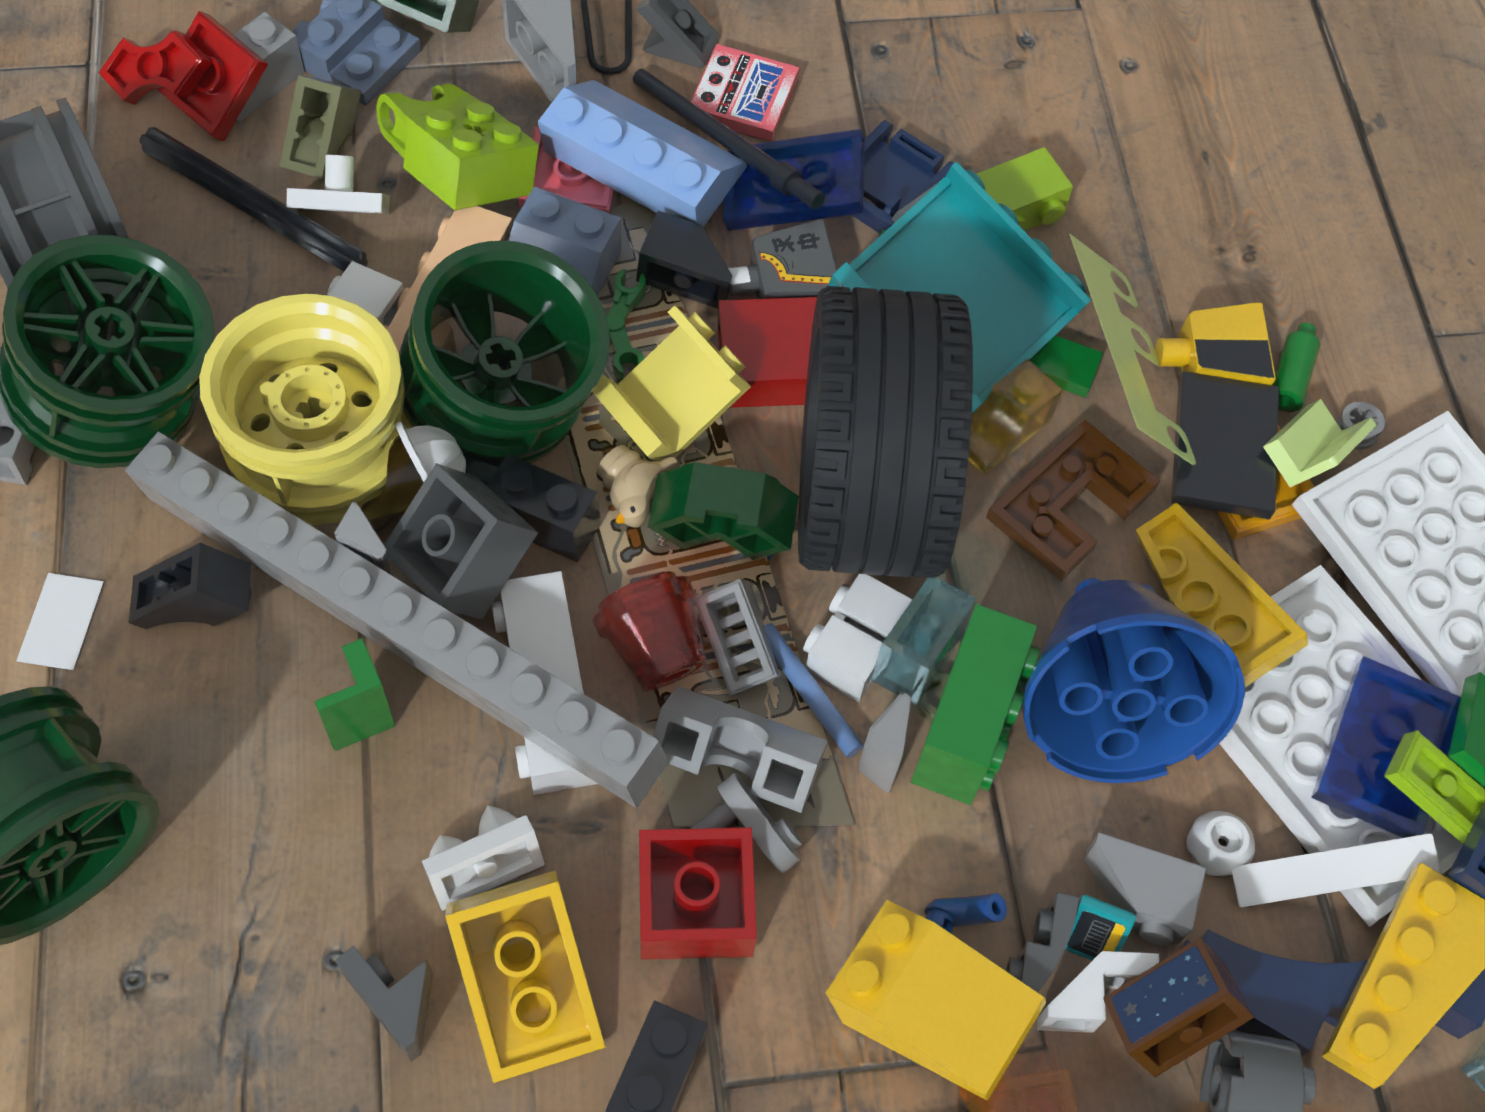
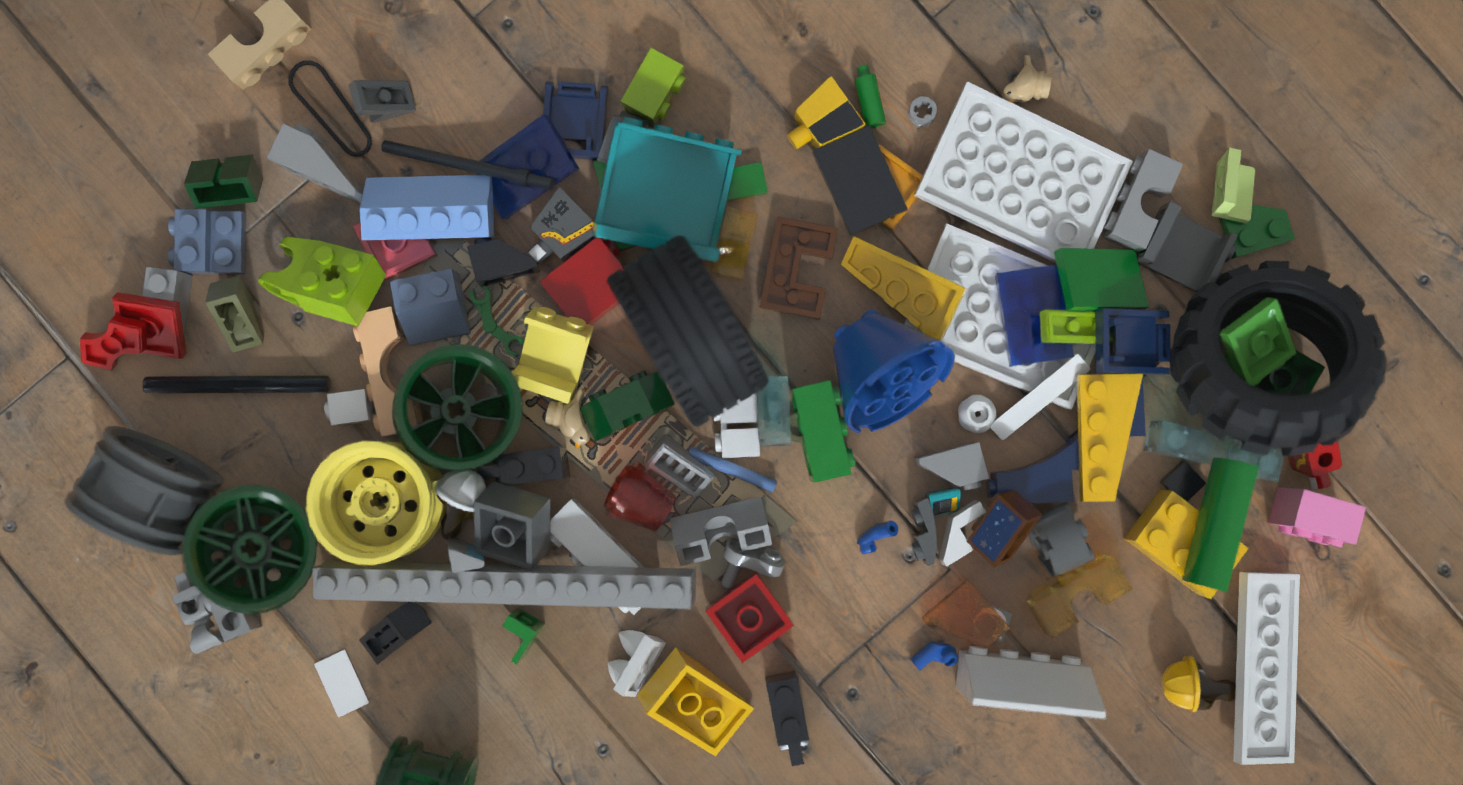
camera: 30 degrees left, 25 degrees up
(338, 191) = (282, 352): white tile -> none
(401, 1007) = (652, 759): dark grey slope -> none
(746, 91) = (451, 115): tile -> none
(886, 744) = (791, 482): light grey slope -> none
(934, 1000) = (891, 594): yellow slope -> none
(1122, 346) = (769, 162): yellowish green piece -> none
(1313, 443) = (907, 150): yellowish green panel -> none

